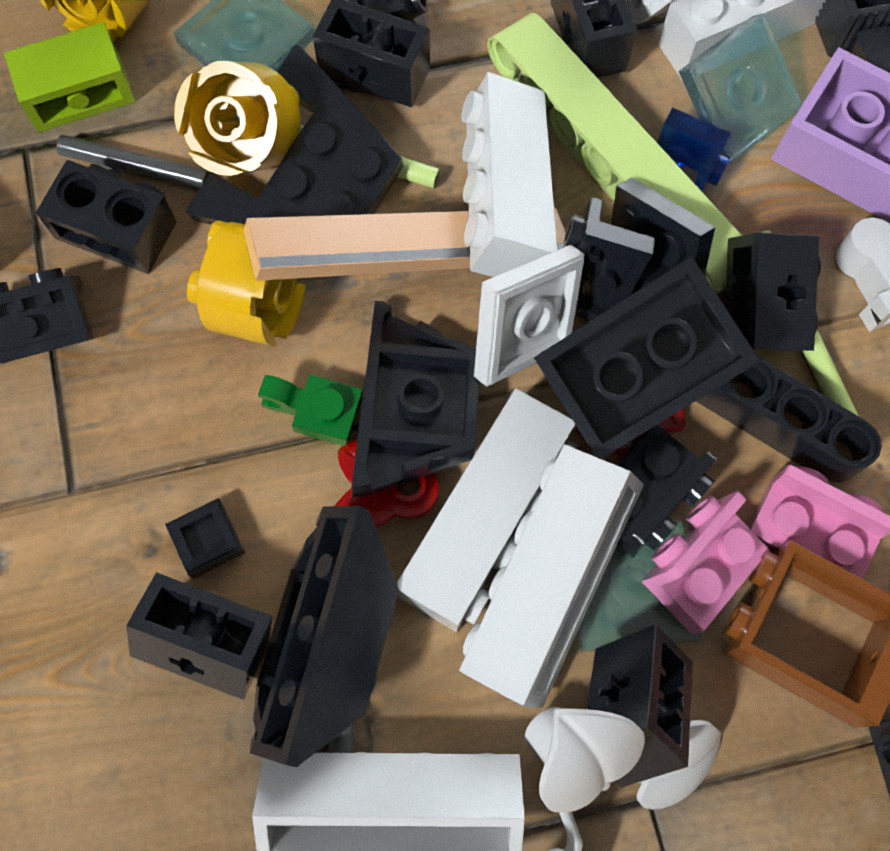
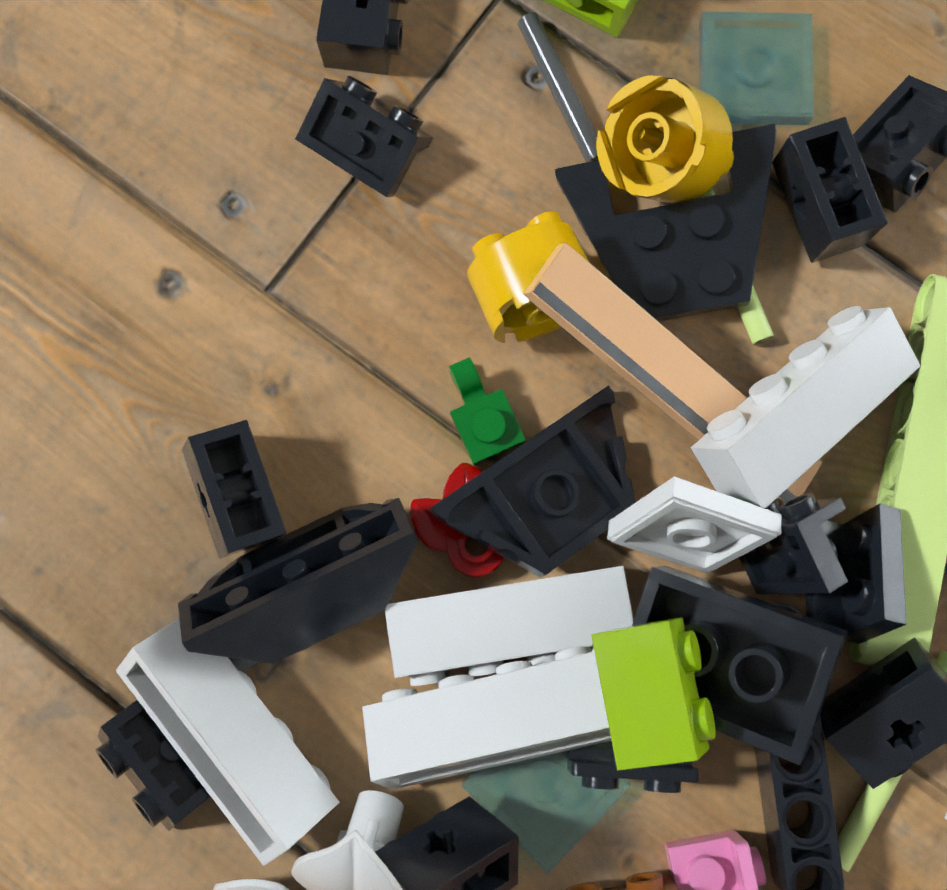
camera: 55 degrees right, 10 degrees up
(103, 223) = (490, 116): black brick -> none
(205, 538) = (312, 423): black tile -> none
(625, 422) = (653, 694): none -> lime brick
(706, 564) = (610, 832): bright pink bracket -> none

